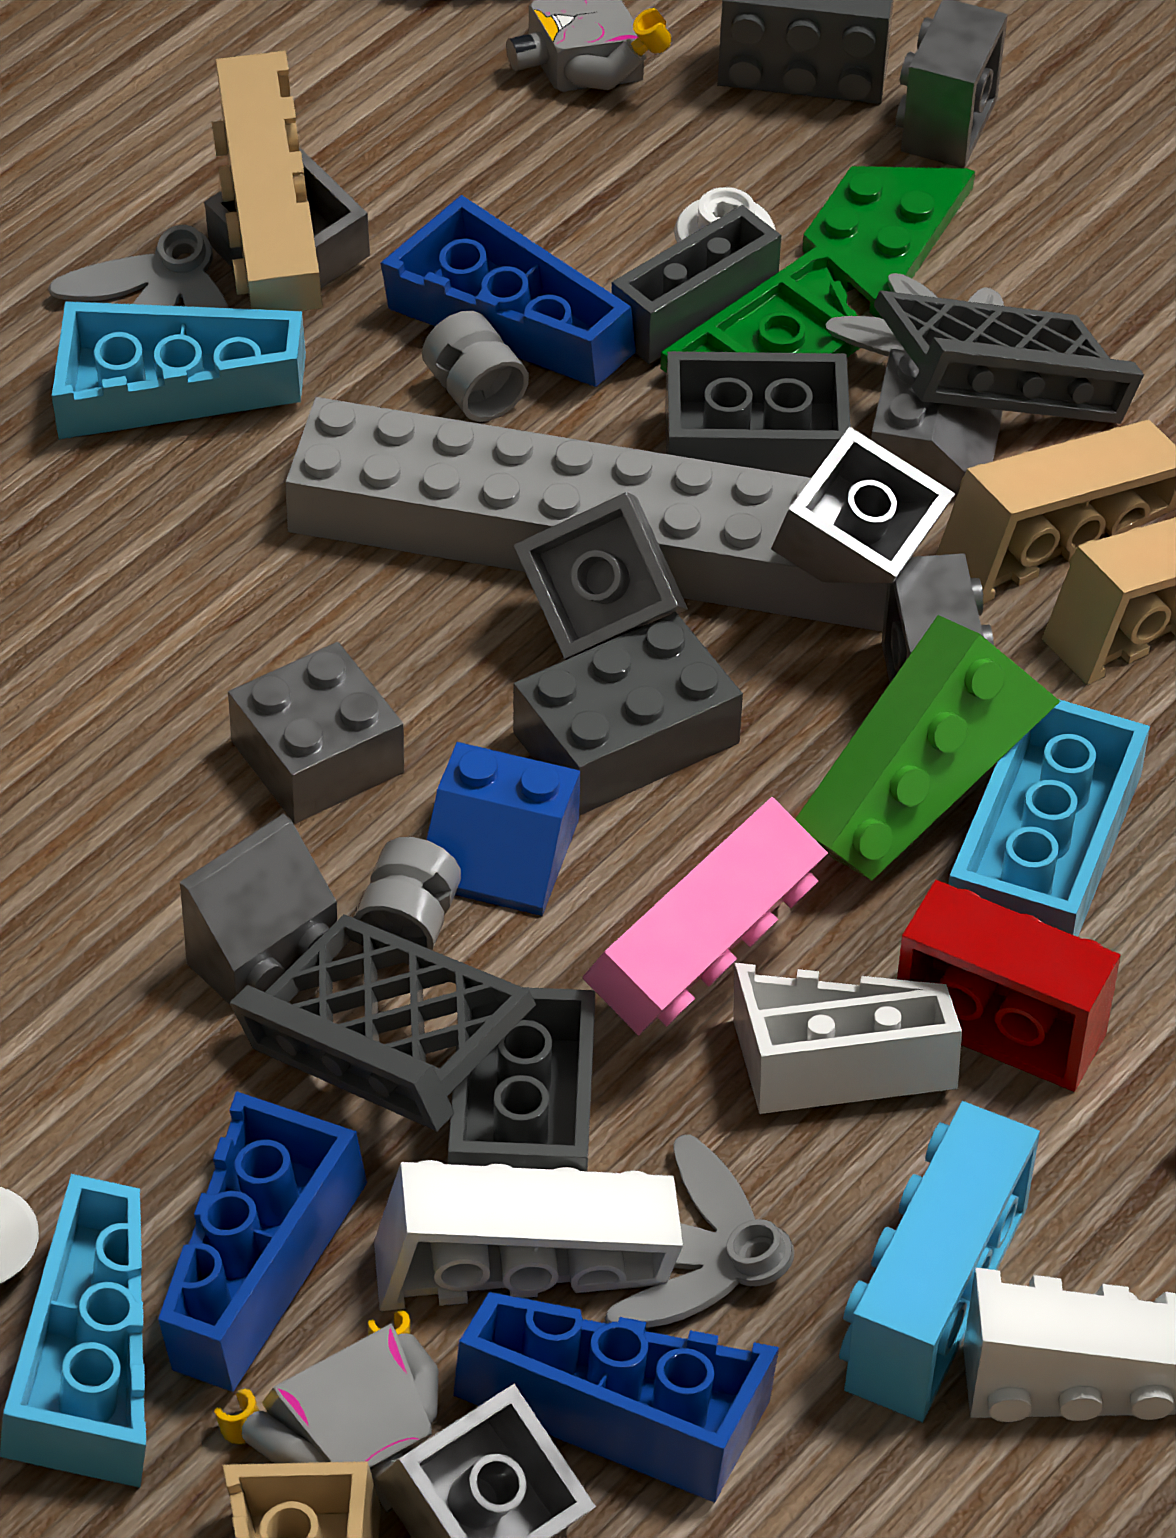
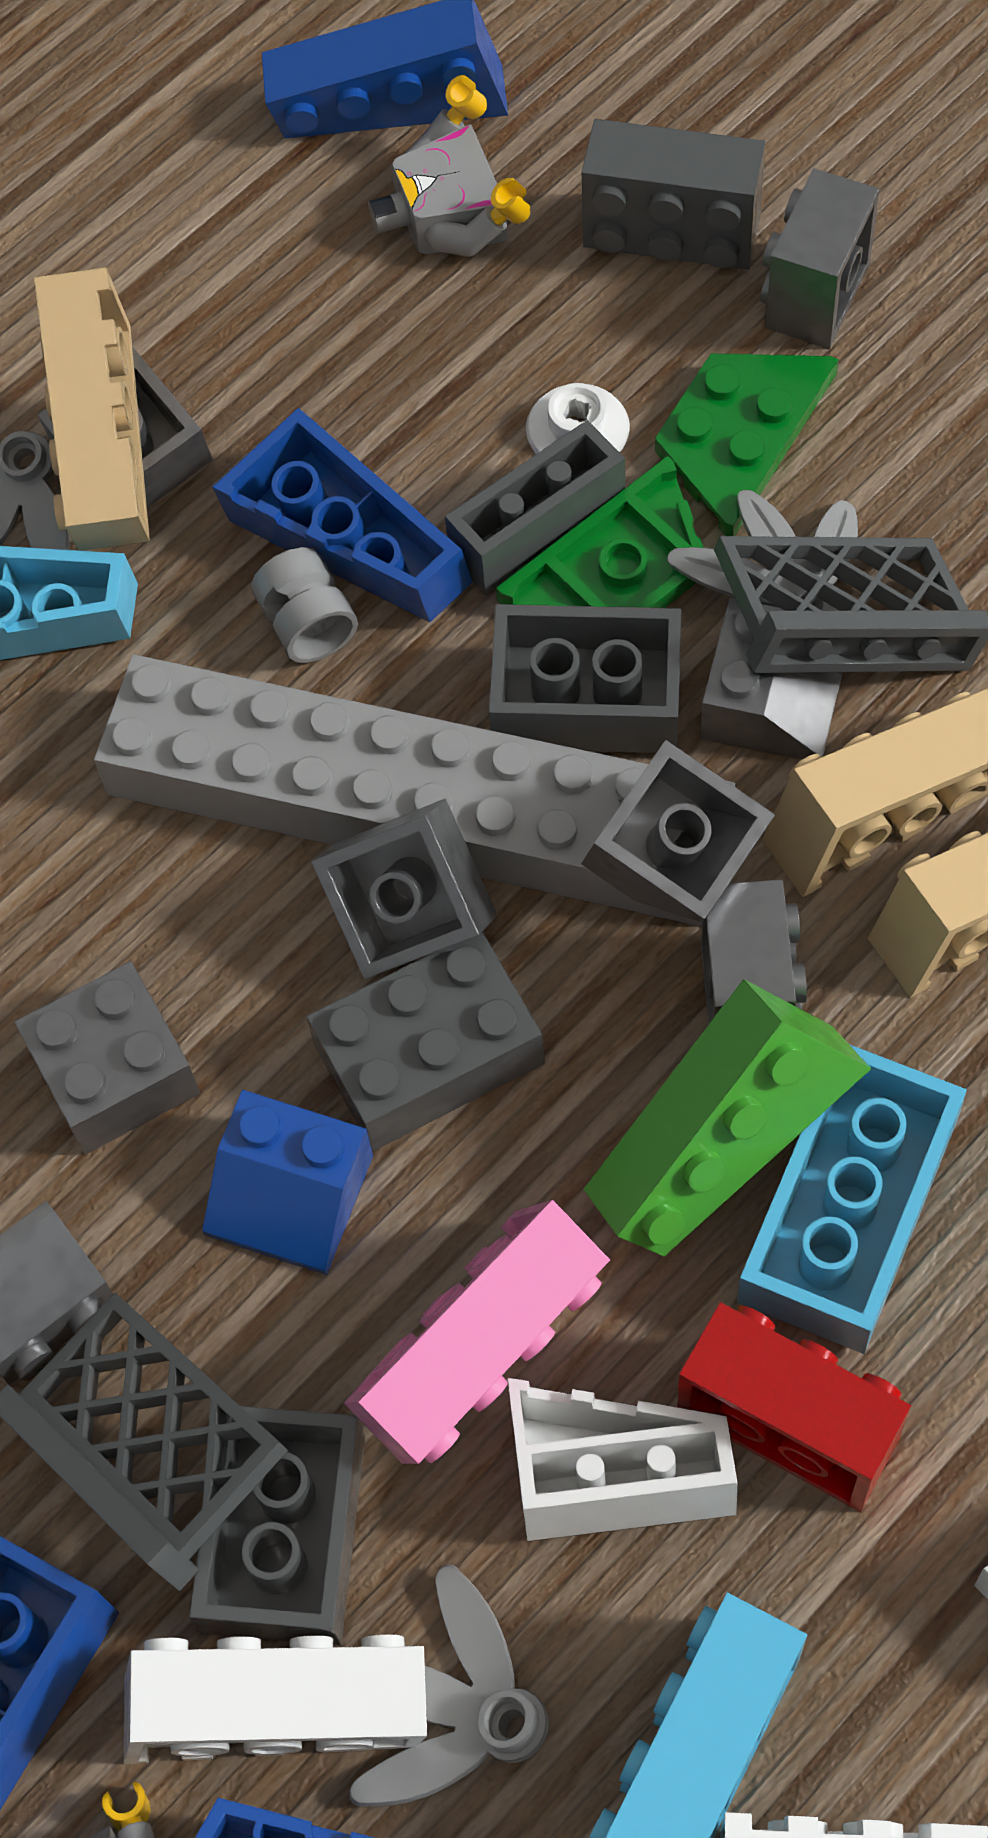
camera: 10 degrees right, 15 degrees up
(410, 890) = (181, 1275): light grey wheel -> none

